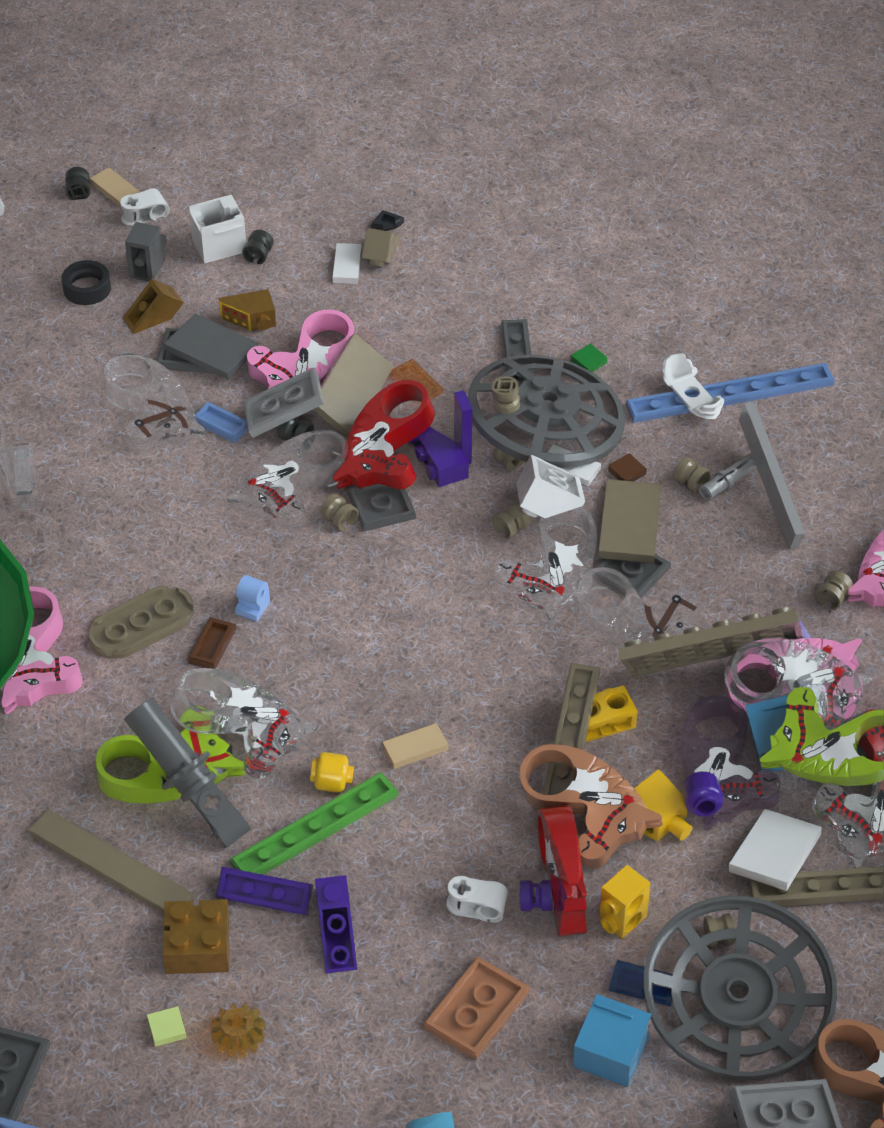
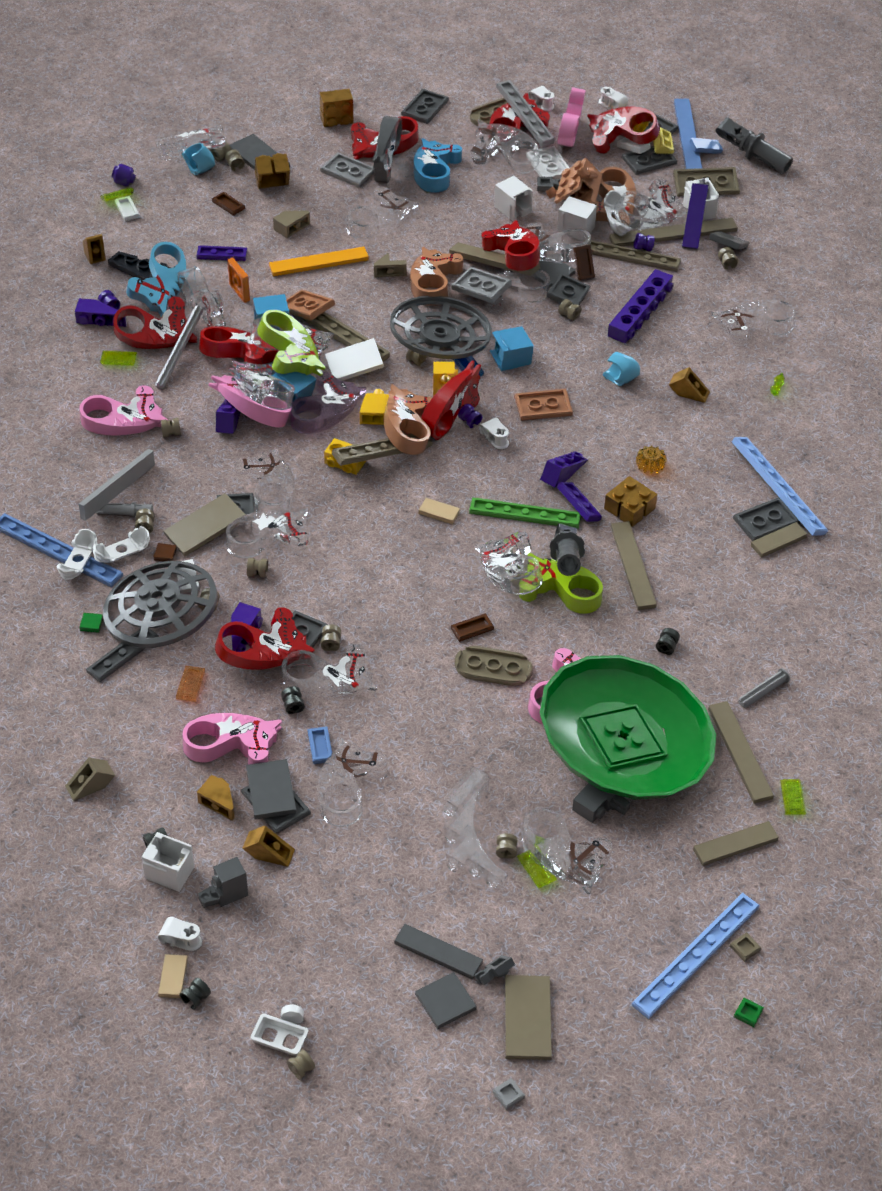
camera: 135 degrees left, 0 degrees up
(87, 295) = (282, 919): black tyre -> none
(166, 1026) = (677, 486): yellowish green tile -> none
(252, 597) = (429, 625): light blue leg -> none
(283, 402) = (285, 707): light grey tile -> none
(331, 772) = (493, 521): yellow head -> none
(347, 263) = (121, 790): white tile -> none
(352, 383) = (233, 697): dark tan tile -> none
(386, 221) = (59, 801): black tile -> none
(463, 423) = (224, 605): dark purple tile -> none
(505, 395) = (185, 597): dark tan wheel -> none
(548, 489) = (228, 551): white slope -> none
(671, 412) = (137, 541): none -> white piece
(702, 794) = (358, 386): dark purple head -> none
(707, 644) = (280, 409): dark tan plate -> none

